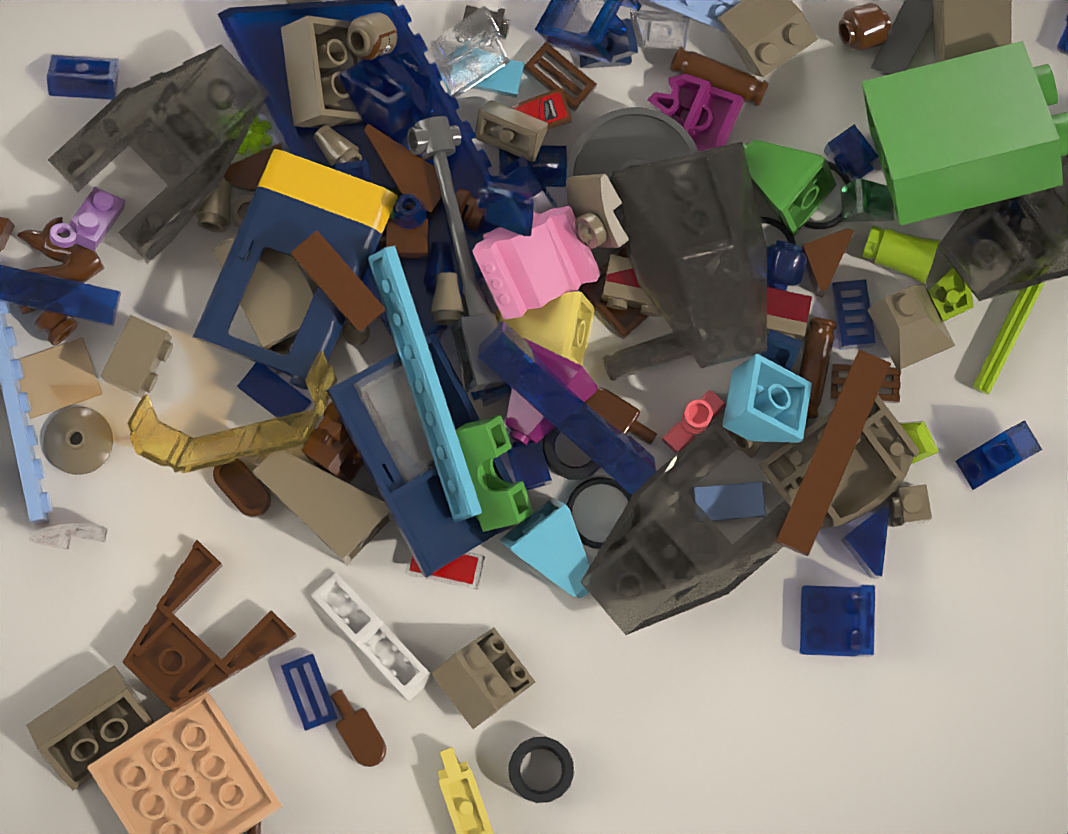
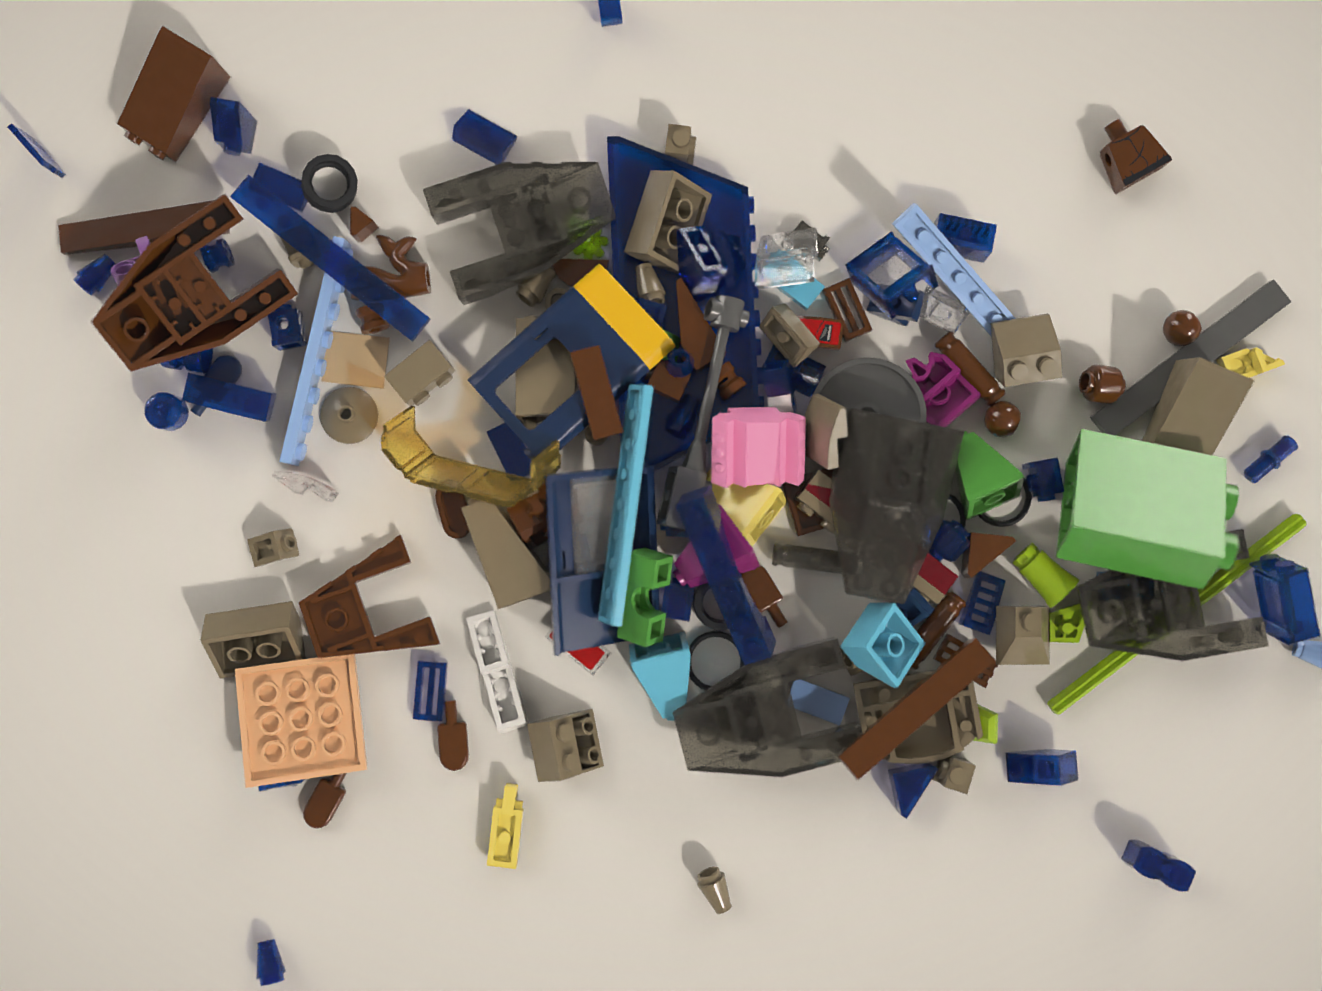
camera: 30 degrees right, 5 degrees up
(64, 619) = (273, 547): none -> dark tan bracket
(90, 221) = (434, 252): medium lavender hinge -> none
(372, 36) = (717, 210): dark tan head -> none
(447, 301) = (675, 446): dark tan cone -> none
(507, 203) = (758, 393): clear blue slope -> none
(566, 763) = (559, 852): black tyre -> none
(591, 230) = (813, 445): dark tan tile -> none
(694, 421) = (822, 627): coral bar -> none
(718, 753) = (714, 887): none -> dark tan cone
(778, 112) = (1002, 419): none -> reddish brown piece
(837, 621) = (856, 834): clear blue bracket -> none
(866, 201) = (1035, 521): clear green slope -> none

